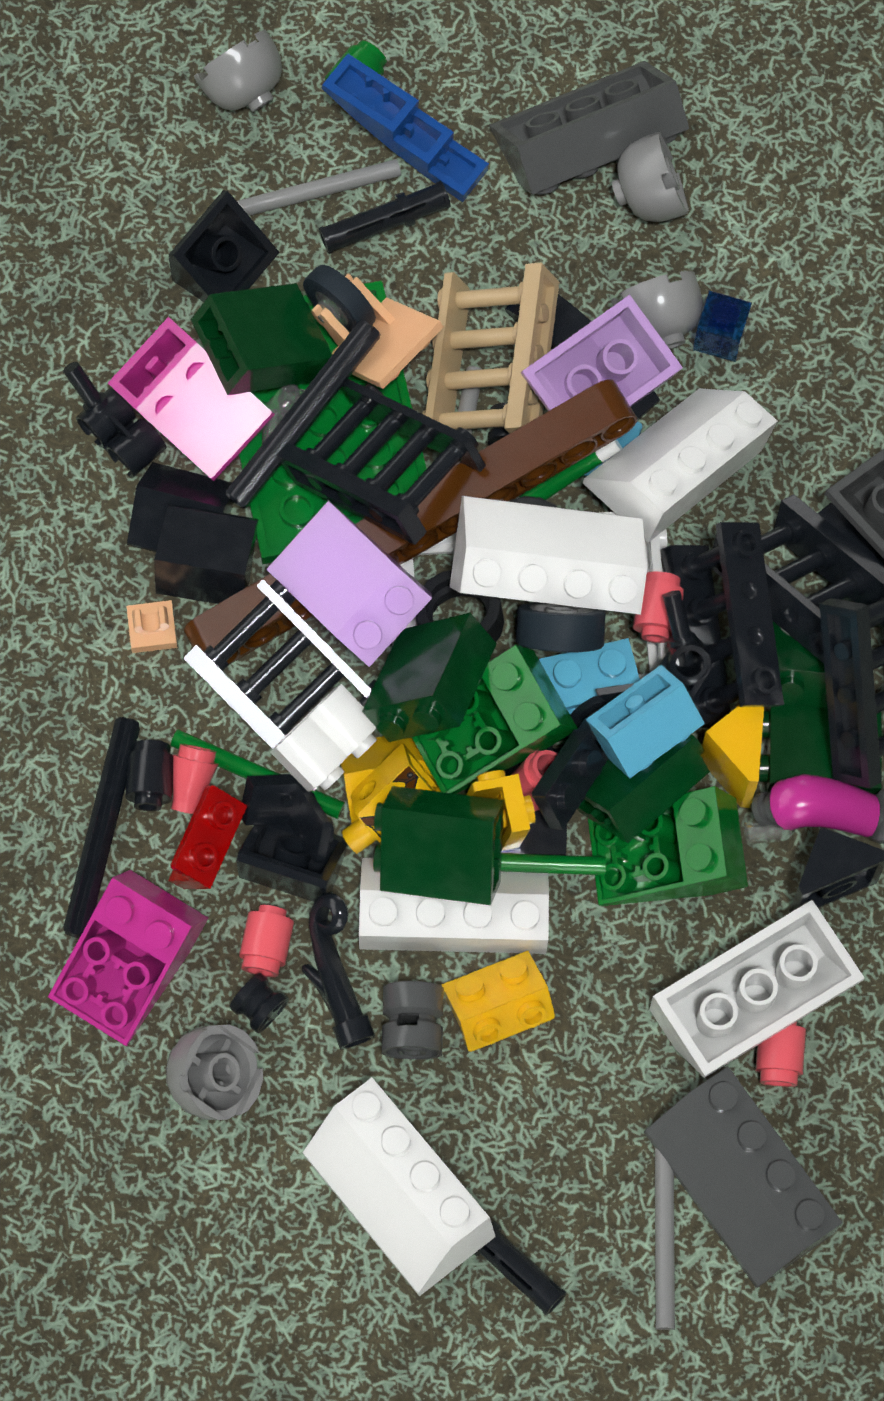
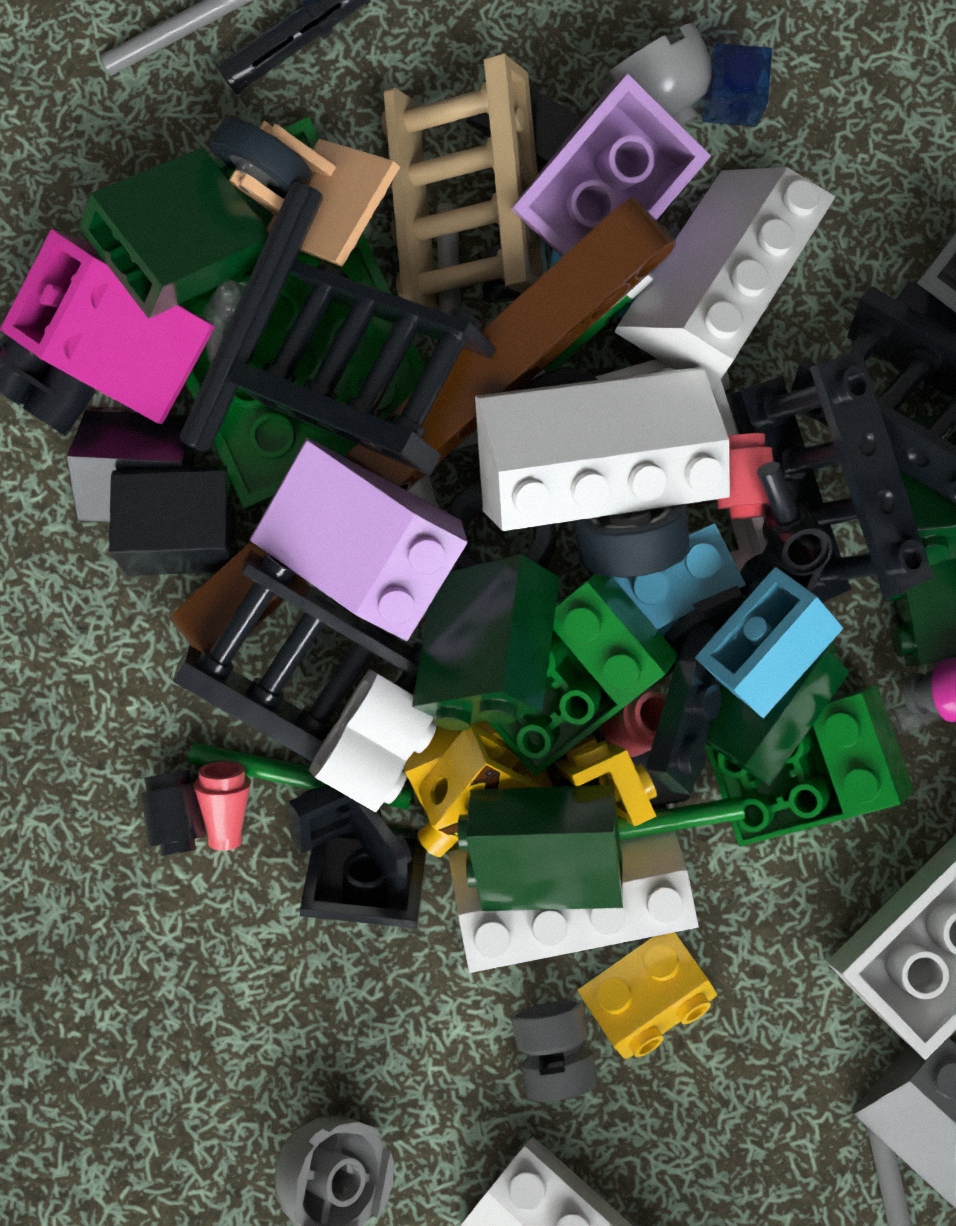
camera: 10 degrees left, 15 degrees up
(101, 827) = (130, 888): black axle -> none
(127, 955) = (198, 1037): dark pink slope -> none
(151, 626) = (132, 619): light nougat tile -> none
(206, 839) = (259, 886): red bracket -> none
(221, 251) = (103, 122): black slope -> none
(259, 1003) = (367, 1065): black wheel -> none
(266, 941) = (358, 987): coral brick -> none
(331, 978) = (424, 954): black plant -> none
(734, 752) = (879, 635): yellow slope -> none

